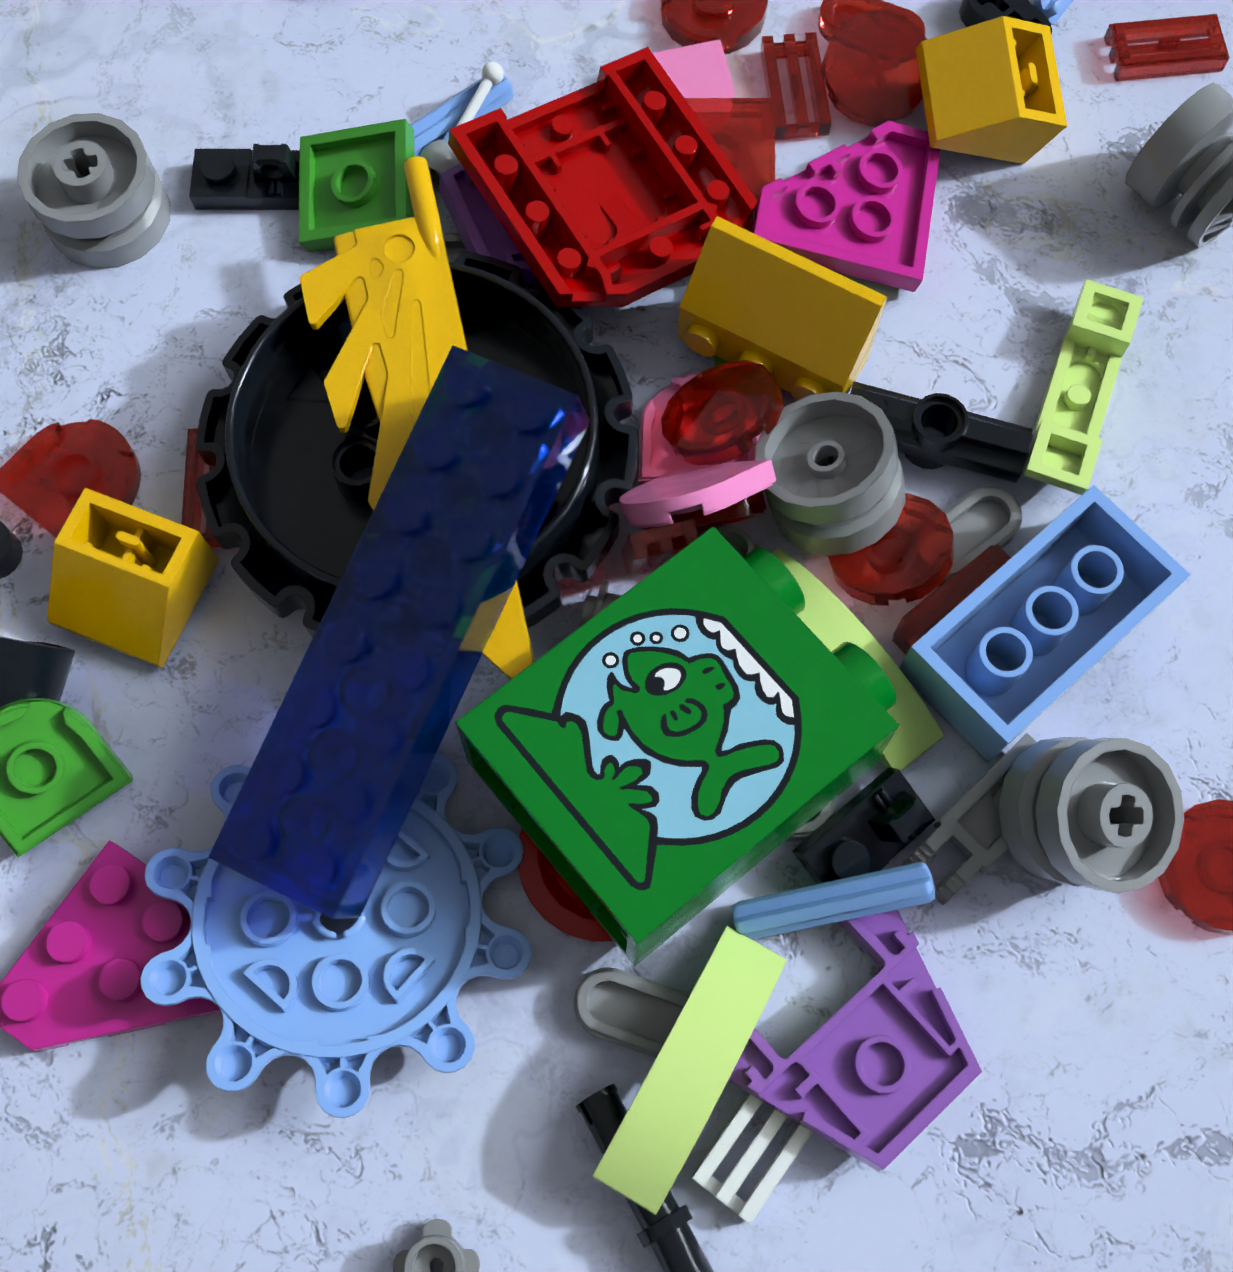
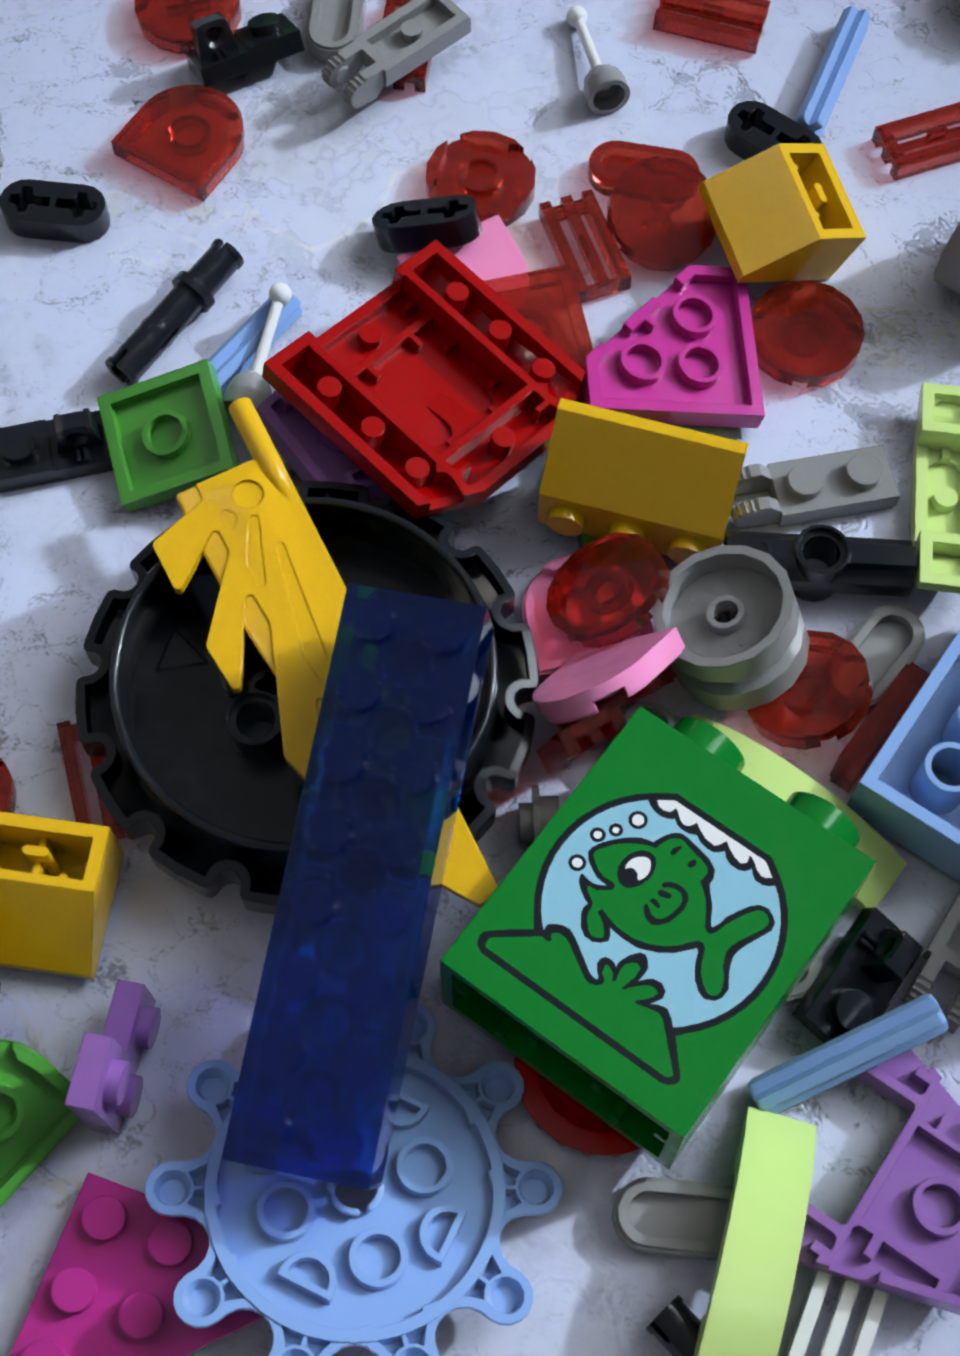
camera: 15 degrees left, 5 degrees down
(143, 758) = (104, 1076): none -> medium lavender plate
(411, 61) = (190, 295): none -> black pin
(666, 33) = (417, 223): none -> black beam
(953, 360) = (816, 488): none -> light grey hinge
(986, 210) = (806, 333): none -> clear red tile

